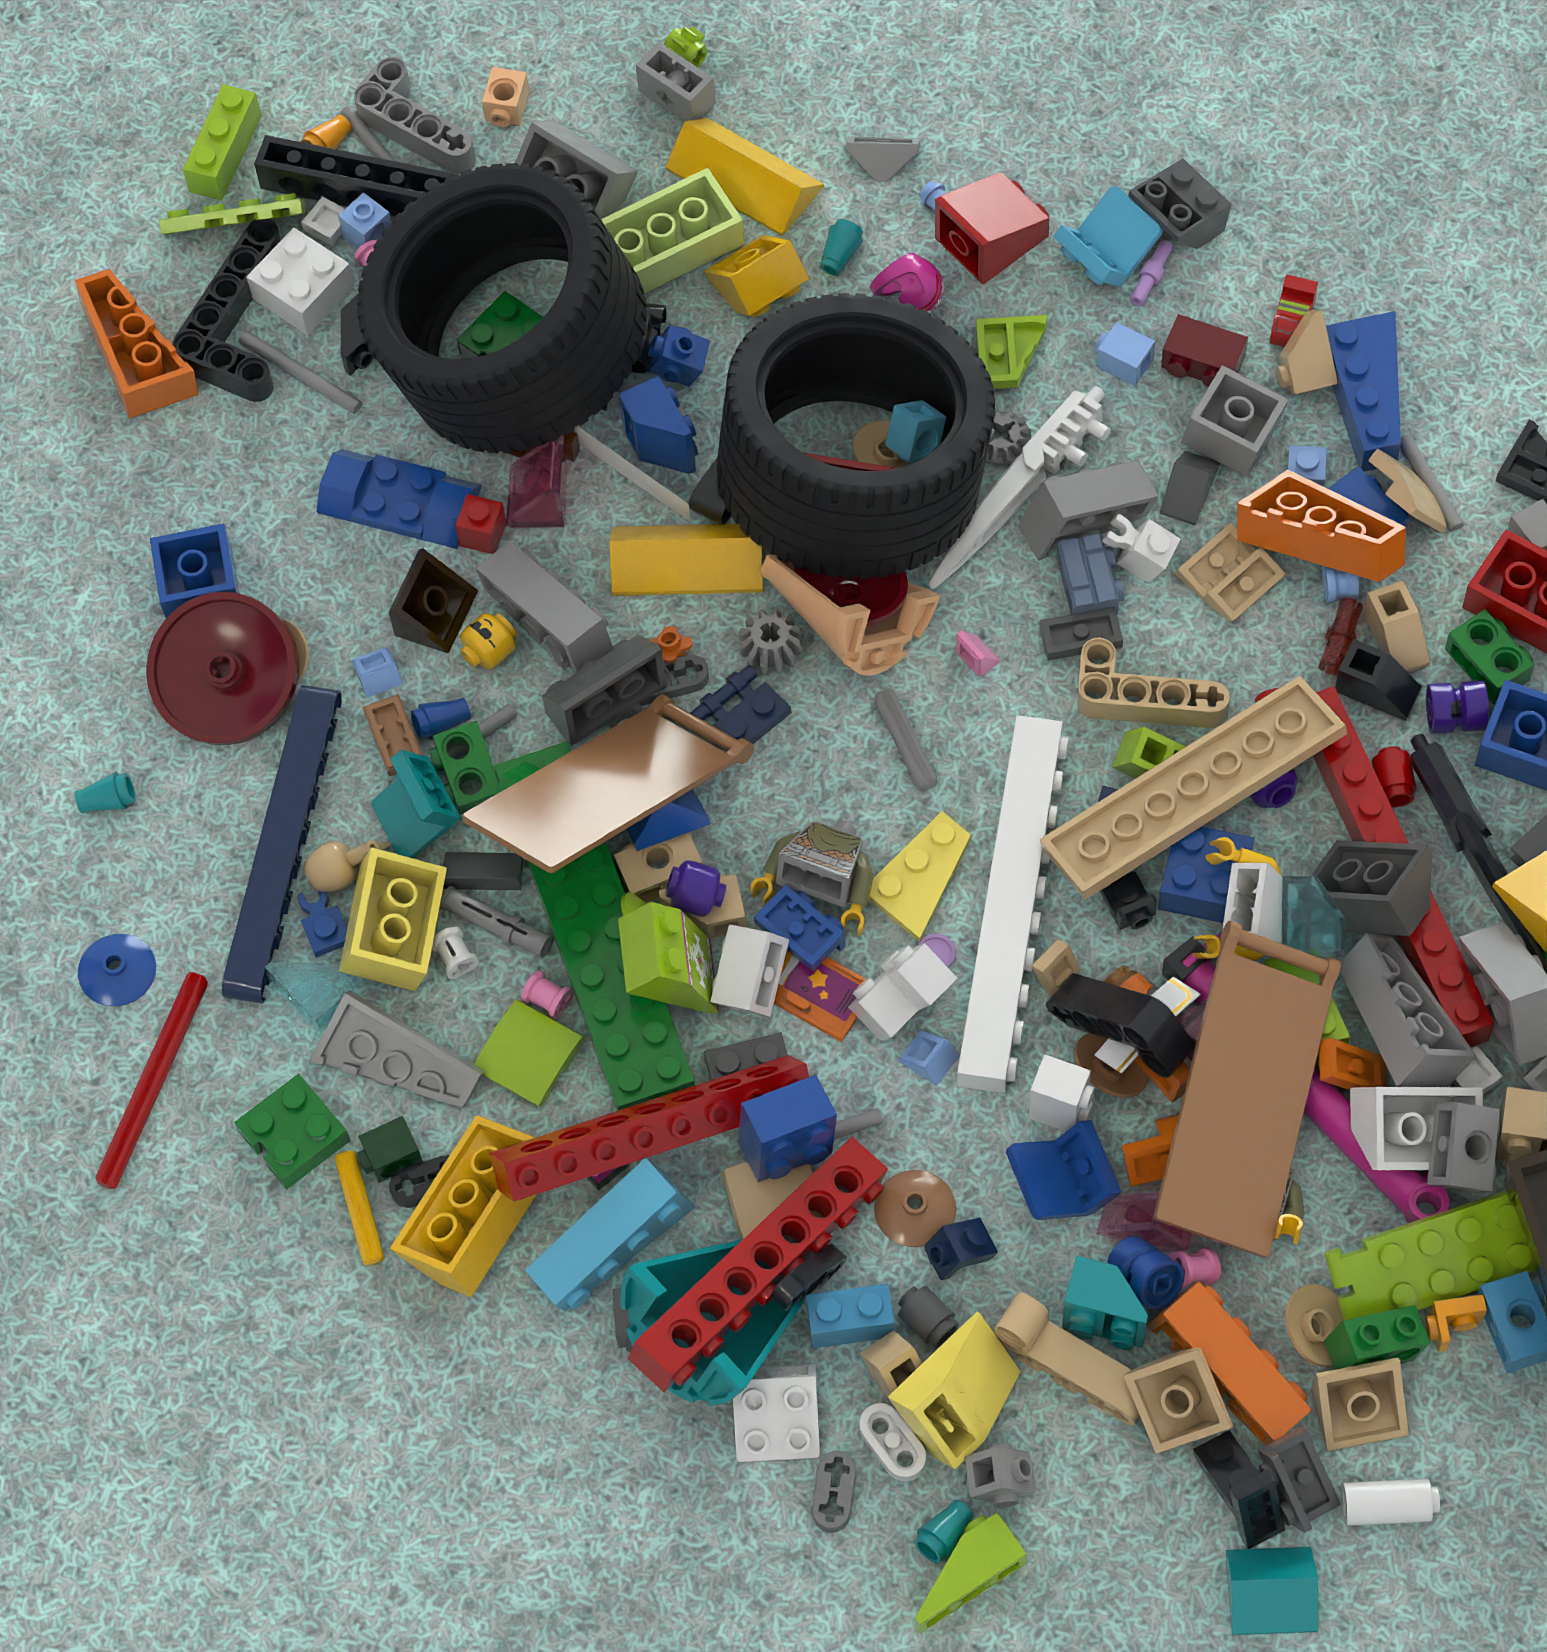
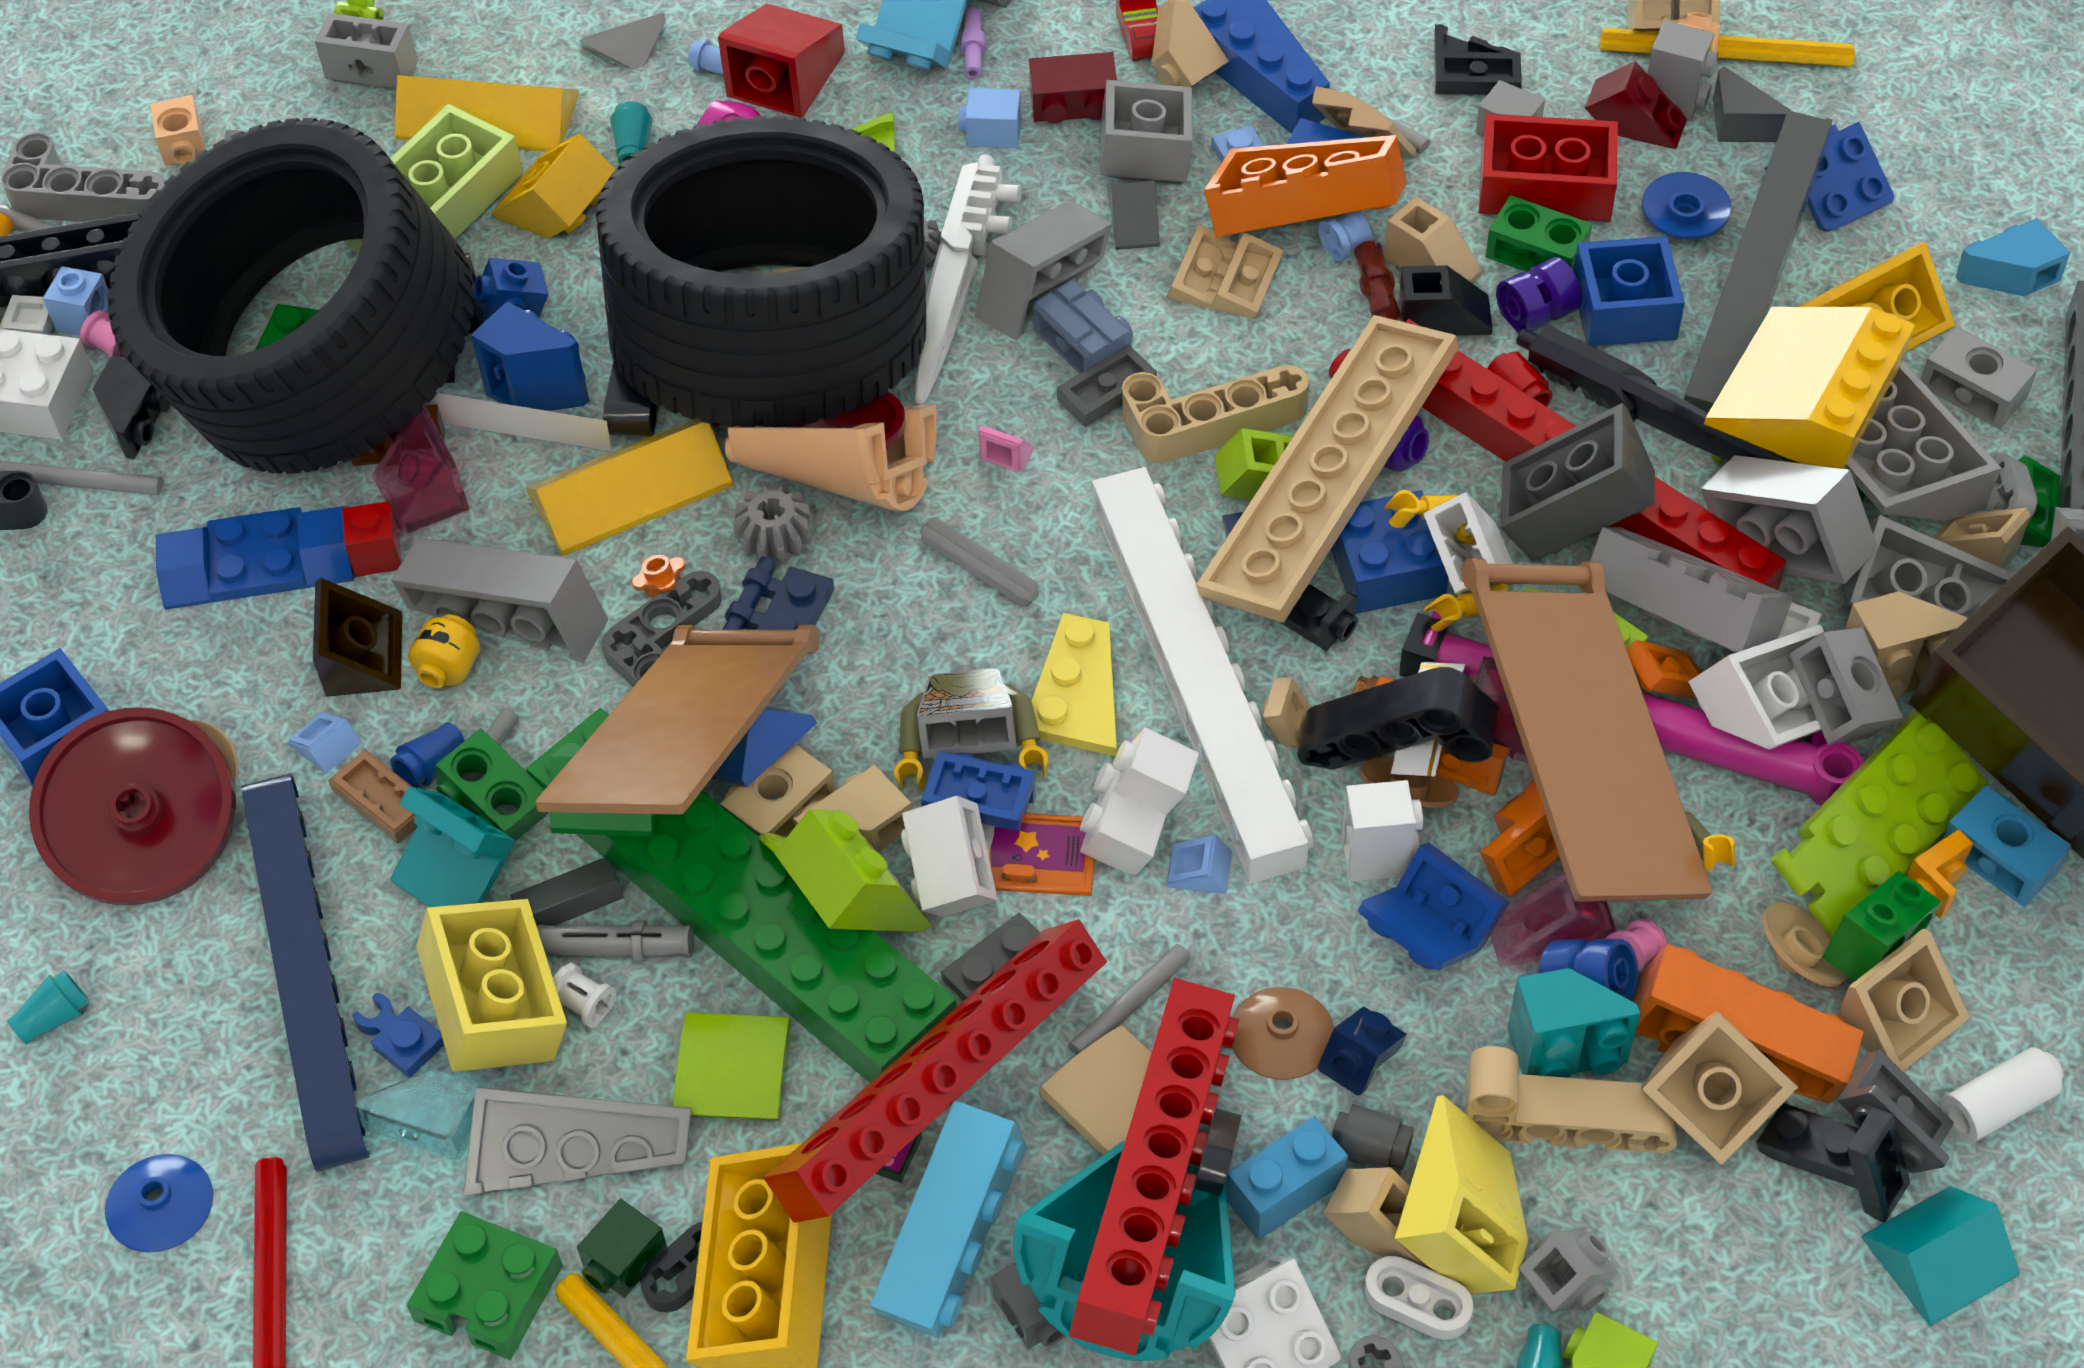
camera: 30 degrees left, 10 degrees down
(335, 865) = (383, 961): tan piece -> none
(546, 994) = (719, 991): bright pink bush -> none
(605, 688) = (614, 636): dark grey slope -> none
(695, 888) = (843, 787): dark purple head -> none
(787, 1129) = (1099, 998): blue brick -> none
(915, 430) = (817, 244): medium azure brick -> none
(1144, 549) = (1126, 279): white brick -> none
(1311, 918) = (1531, 533): clear light blue slope -> none

